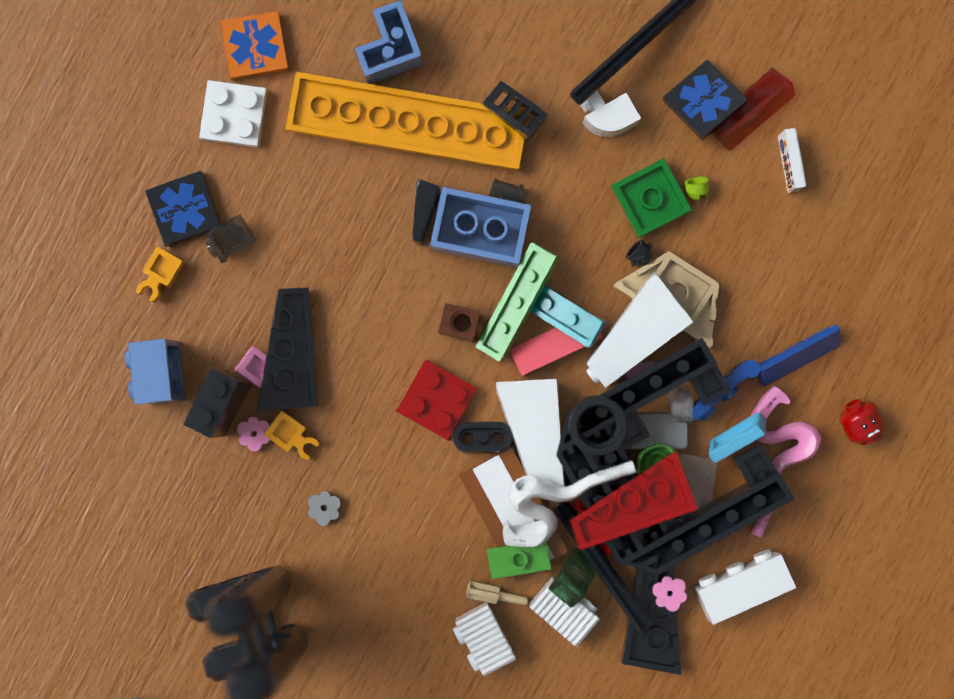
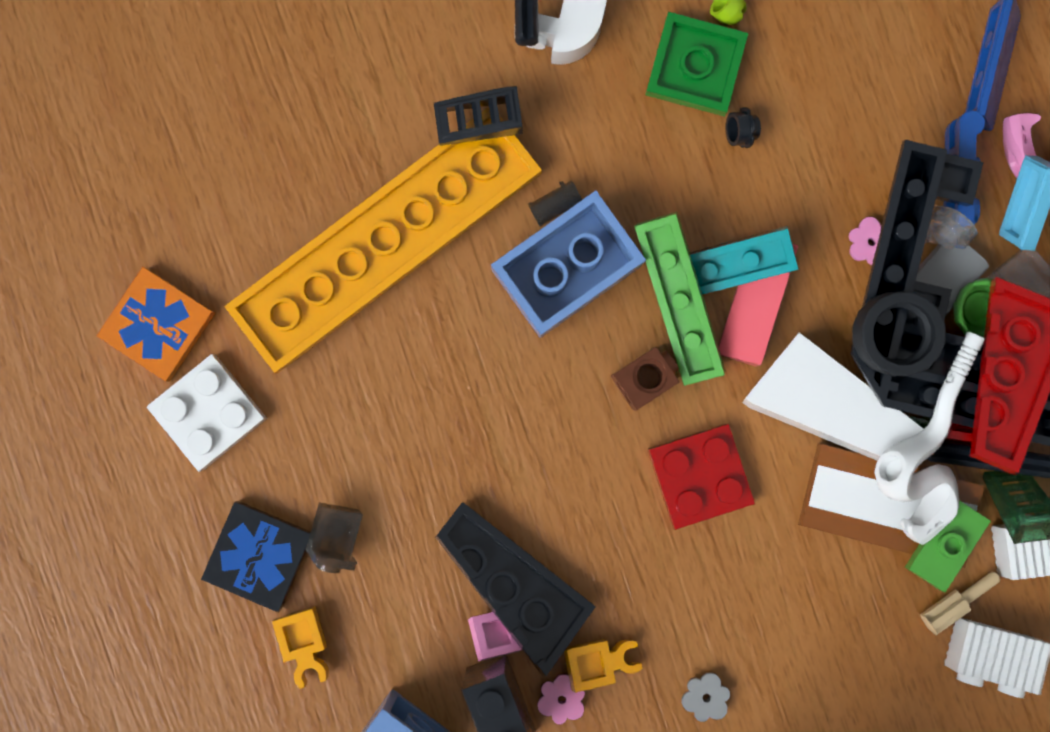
camera: 45 degrees left, 0 degrees up
(396, 49) = (298, 179): medium blue brick -> none
(425, 204) = (485, 297): black slope -> none
(483, 437) = (786, 465): black plate -> none
(641, 329) = (827, 202): white slope -> none
(689, 286) = (819, 130): tan wing -> none

